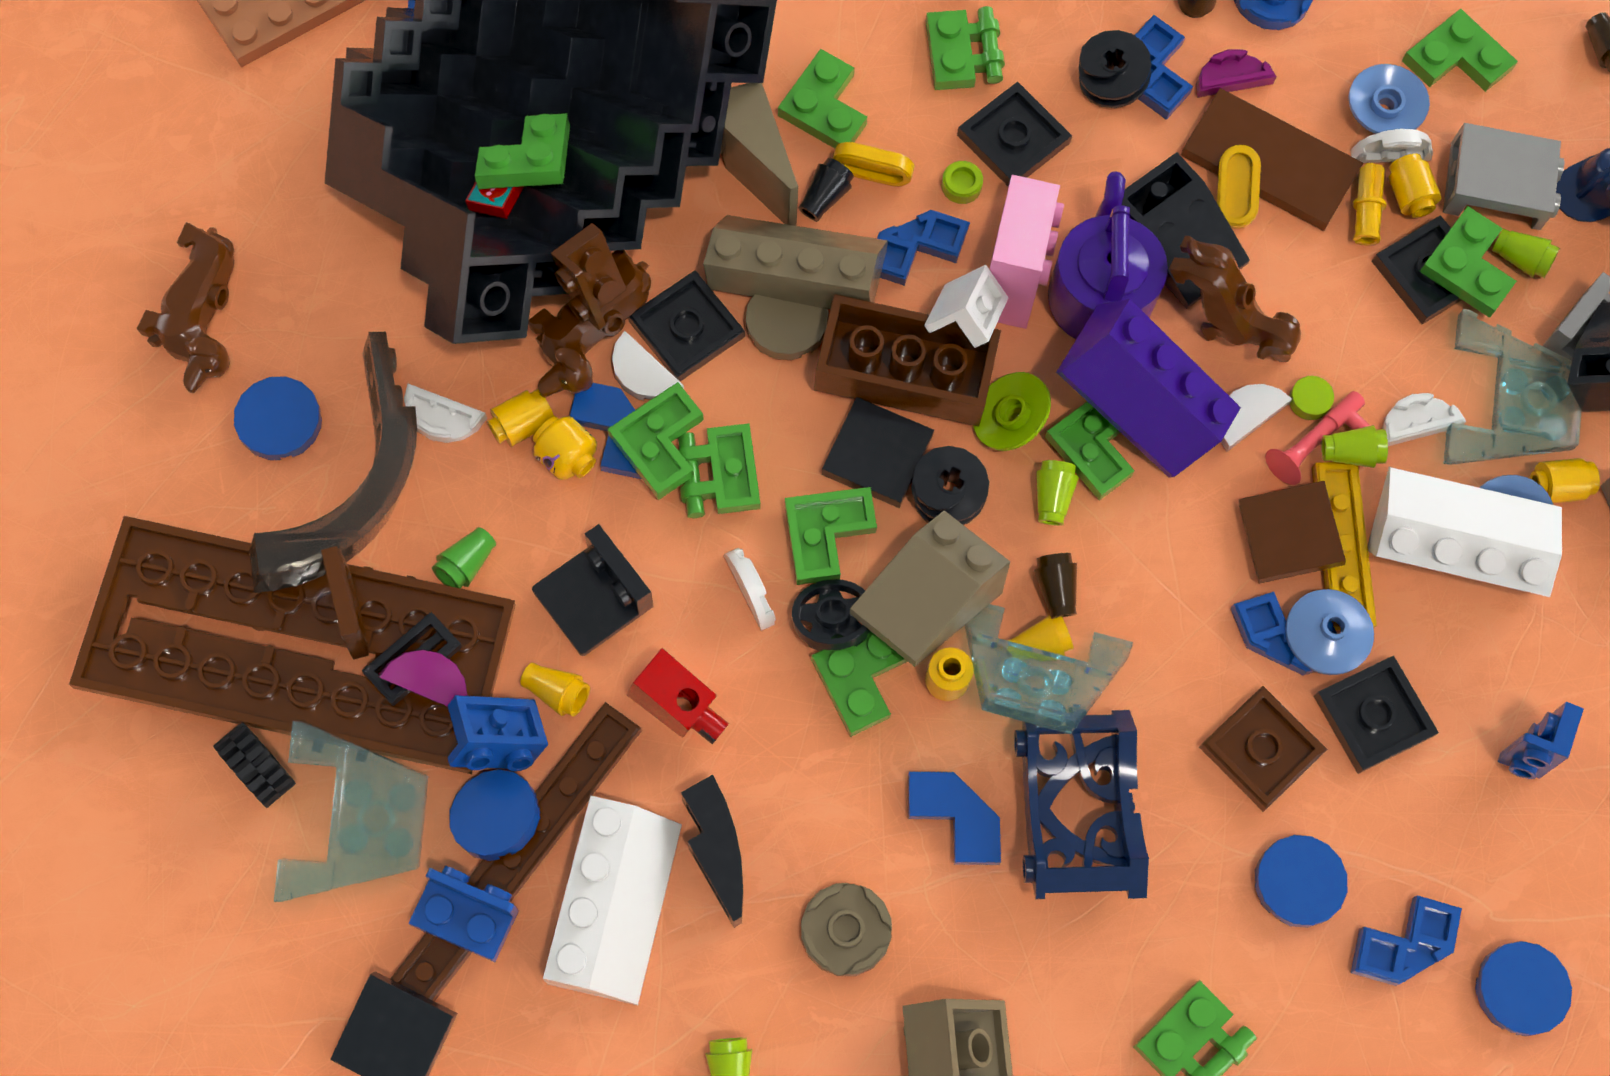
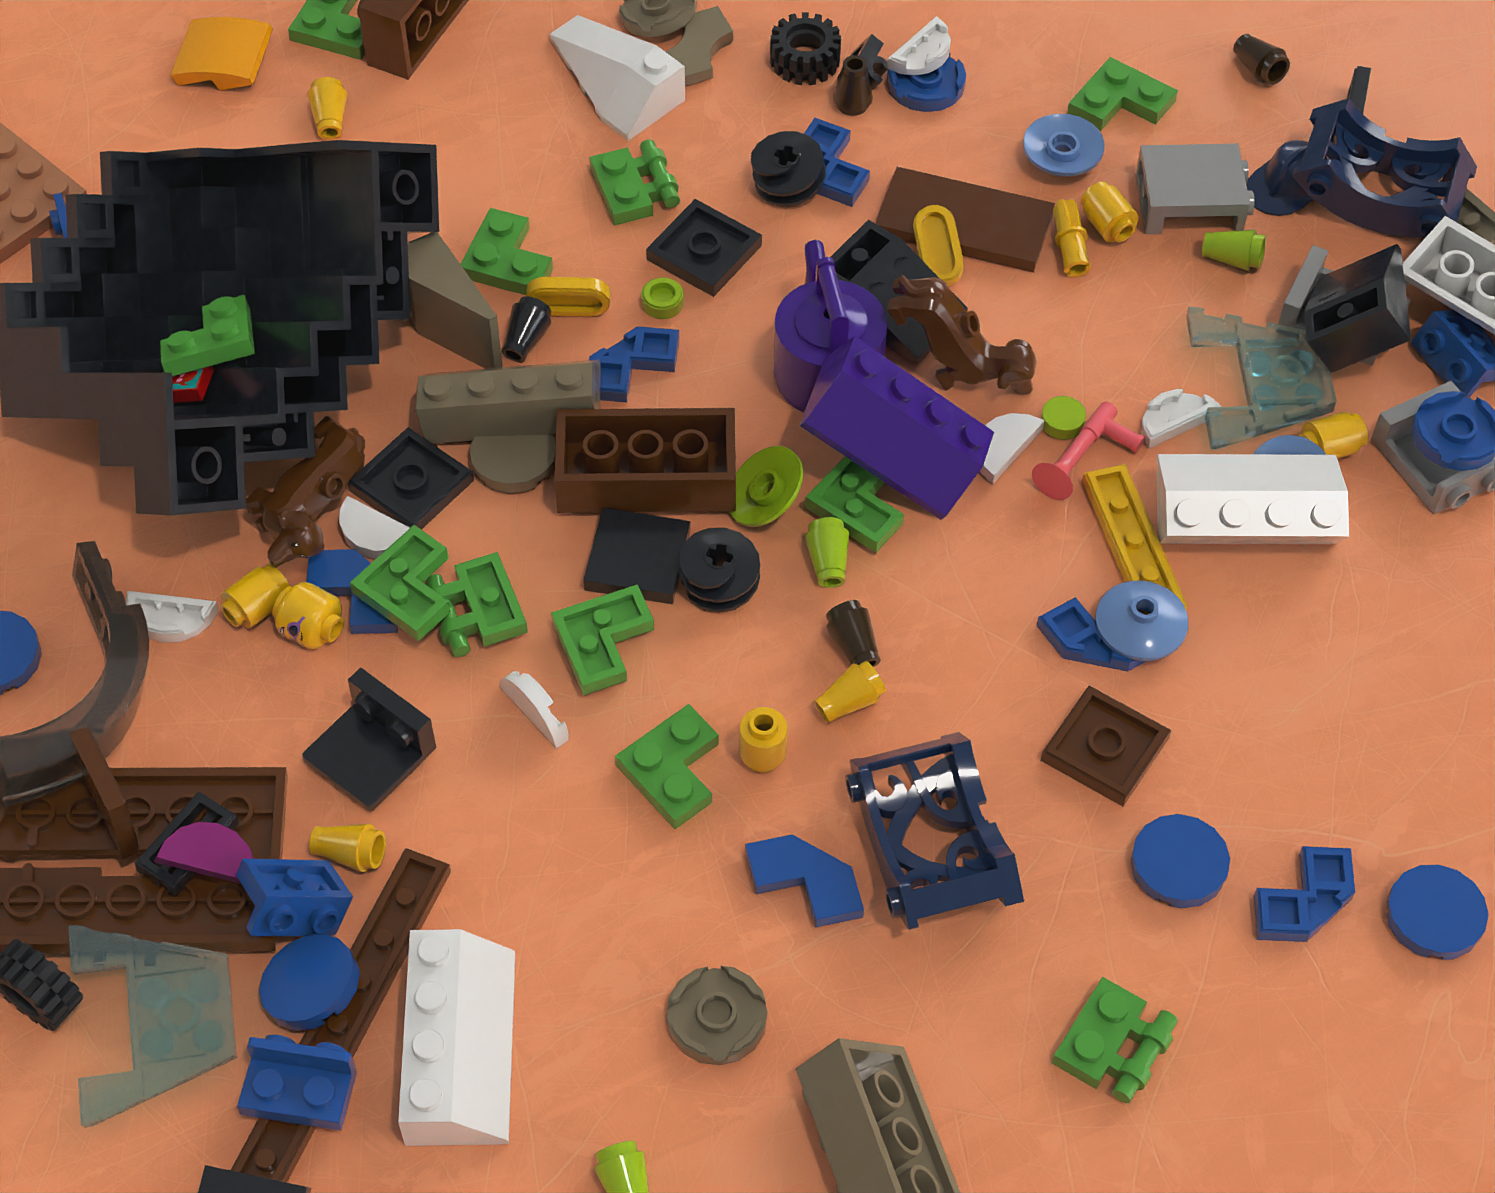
camera: 10 degrees left, 15 degrees down
(463, 560) = (223, 740): bright green cone -> none
(588, 274) = (299, 432): reddish brown bracket -> none
(665, 682) = (479, 820): red torso -> none
(717, 846) = (556, 959): black slope -> none
(829, 617) = (629, 714): black wheel -> none
(932, 588) = (725, 658): dark tan slope -> none
(972, 302) = (702, 384): white panel -> none
(1022, 245) = (737, 342): bright pink wedge -> none
(1035, 682) = (853, 722): clear light blue wing -> none
(1233, 72) = (908, 152): magenta tile -> none
(1291, 532) = (1077, 538): reddish brown tile -> none
(1356, 447) = (1120, 446): lime cone -> none
(1376, 714) = (1211, 689): black tile -> none
(1391, 145) = (1076, 179): white tile -> none
(1402, 265) = (1148, 283): black tile -> none
(1460, 266) = (1176, 272): bright green plate -> none
(1544, 744) = (1381, 673): blue bracket -> none

